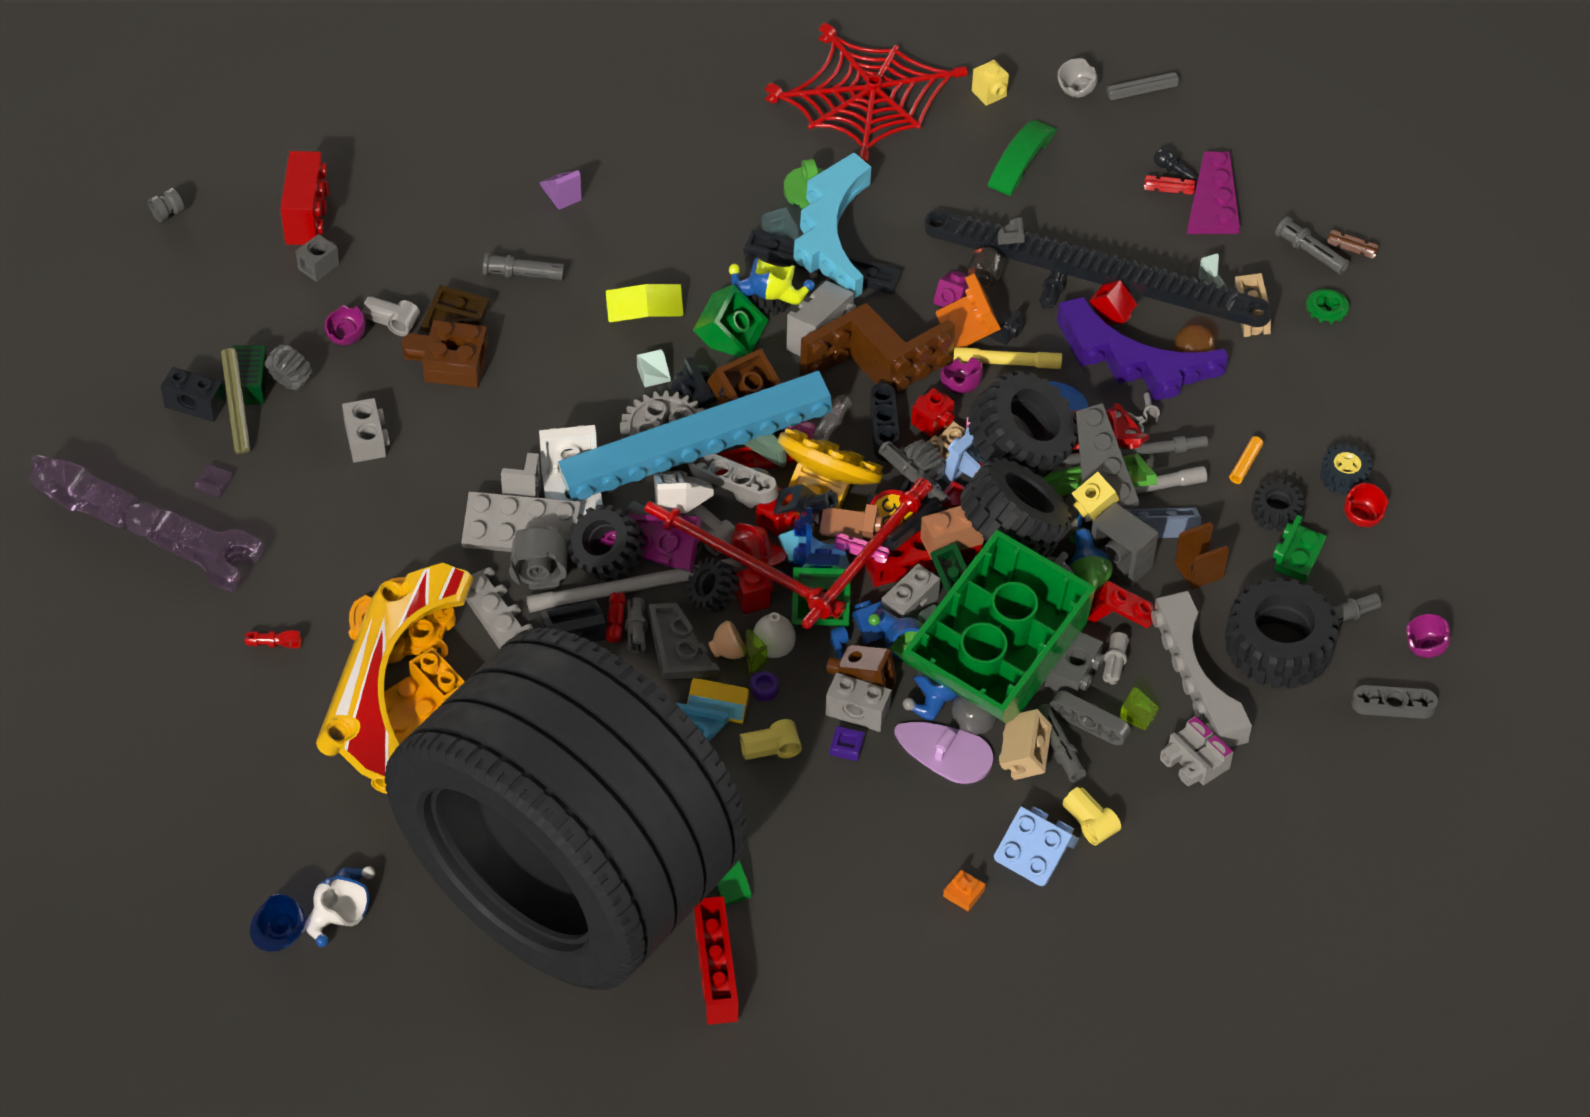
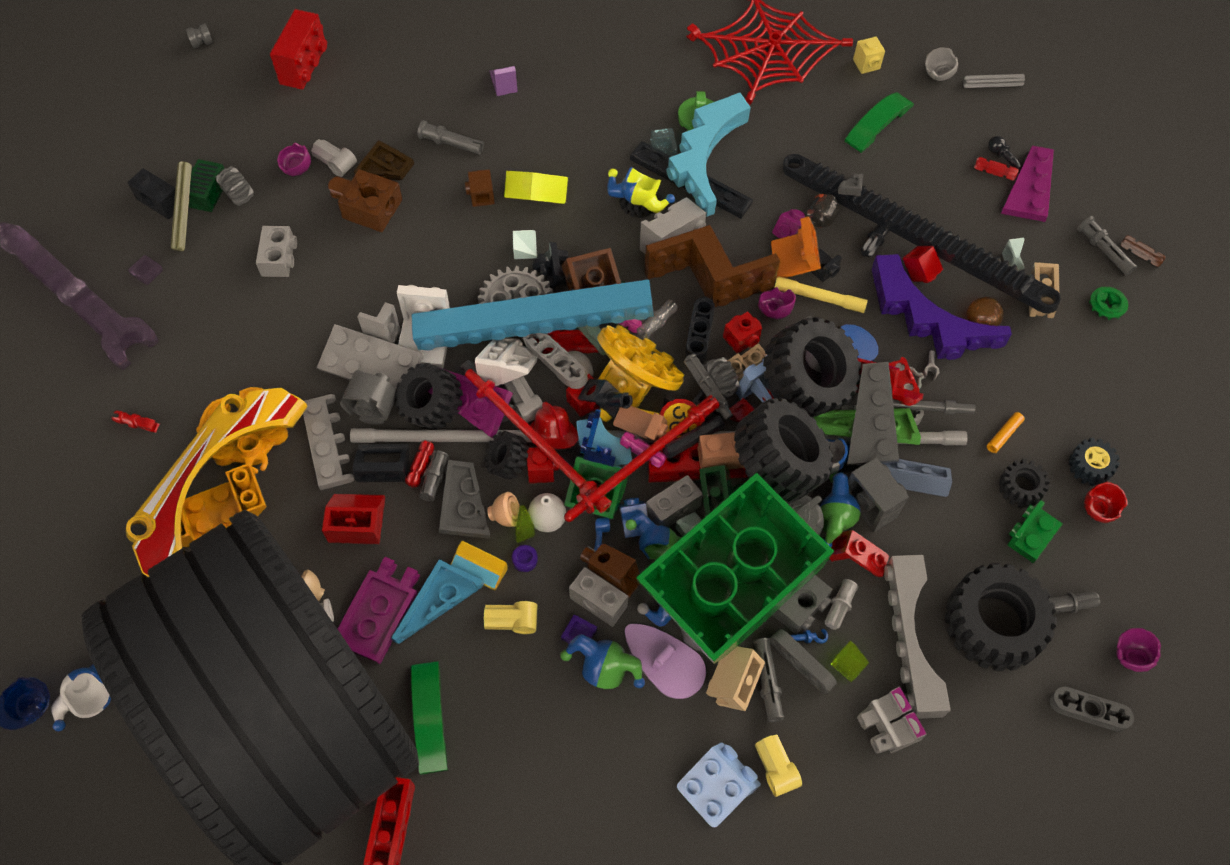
camera: 15 degrees right, 10 degrees up
(317, 257) = (295, 99): dark grey brick -> none
(580, 316) = (480, 188): none -> reddish brown brick
(730, 322) = (599, 218): green slope -> none
(884, 758) = (604, 662): none -> piece
(964, 890) = (640, 814): orange tile -> none
(1089, 696) = (807, 636): none -> blue hand
(1094, 497) = (858, 449): light yellow brick -> none
(1194, 551) = (939, 511): reddish brown piece -> none

